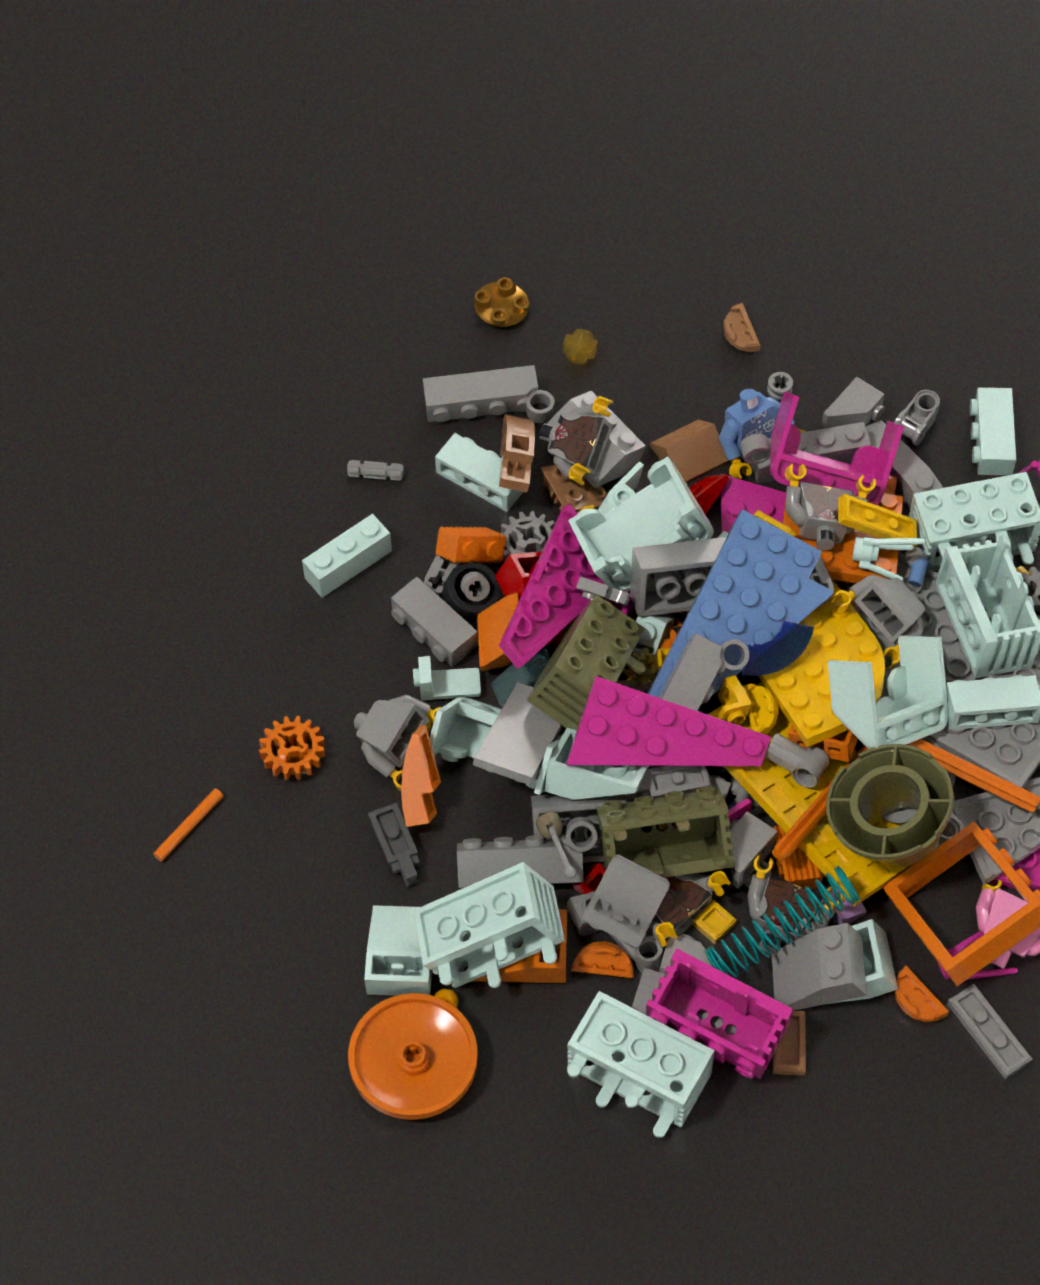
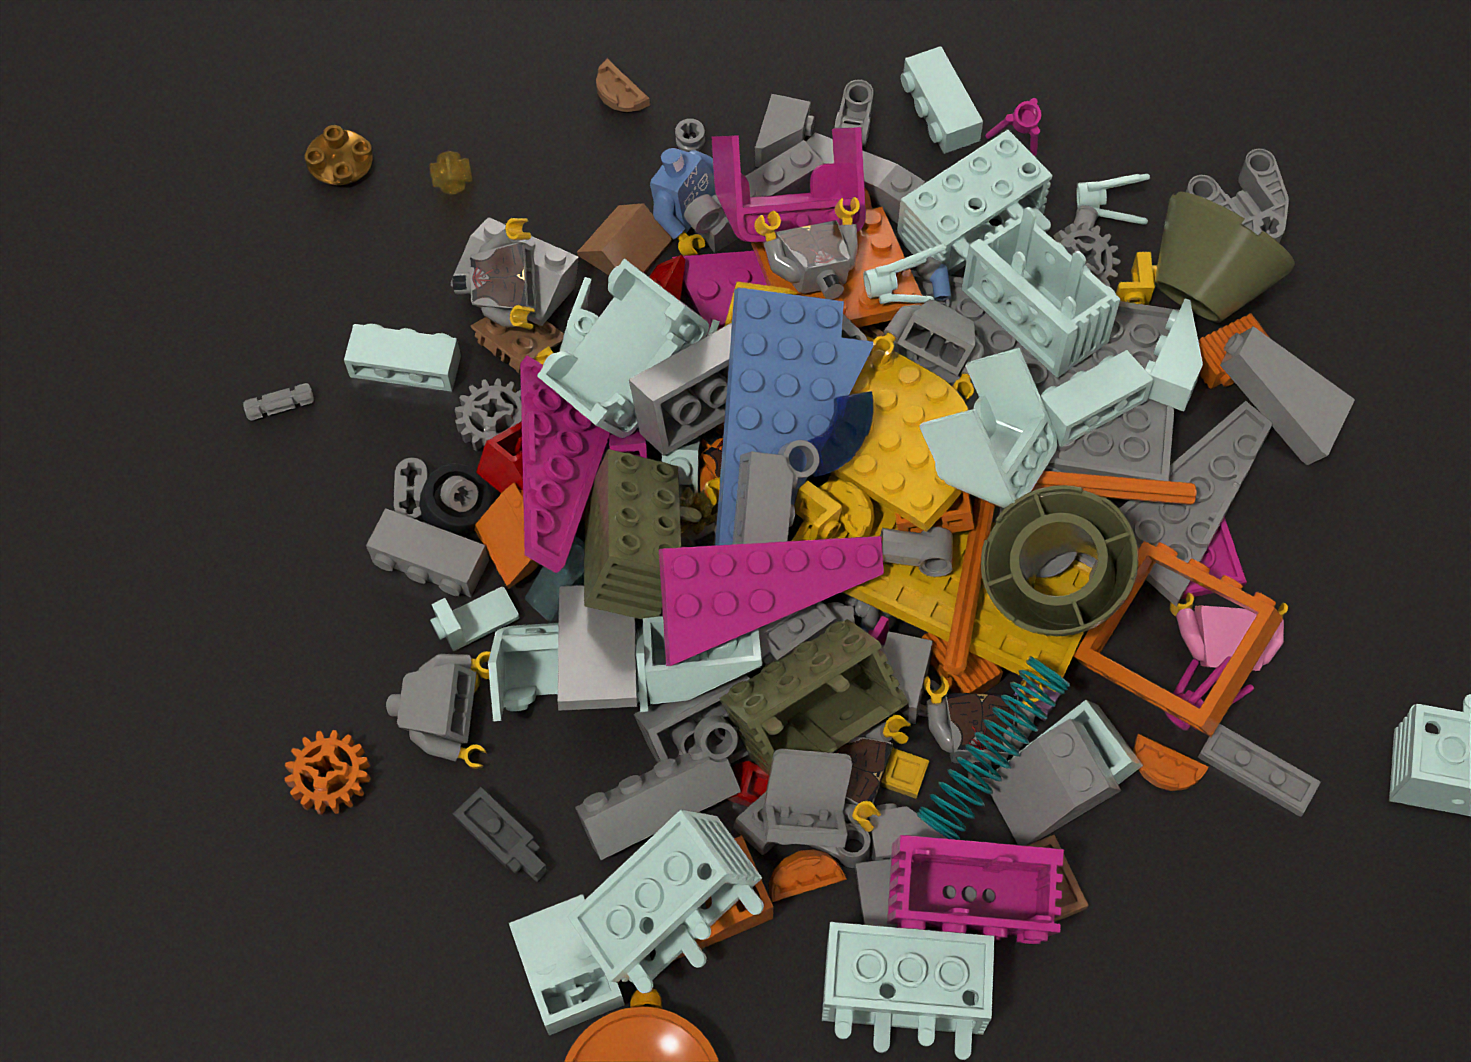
camera: 25 degrees left, 5 degrees up
(188, 825) = (242, 919): orange bar -> none
(347, 555) = (290, 515): light aqua brick -> none
(419, 779) = (500, 752): orange slope -> none
(470, 545) = (431, 447): orange brick -> none
(486, 394) = (369, 265): light grey hinge -> none
(516, 452) = (437, 318): medium nougat slope -> none
(550, 827) = (679, 745): hinge -> none
(592, 587) = (599, 444): light grey plate -> none
(874, 519) = (874, 243): yellow tile -> none

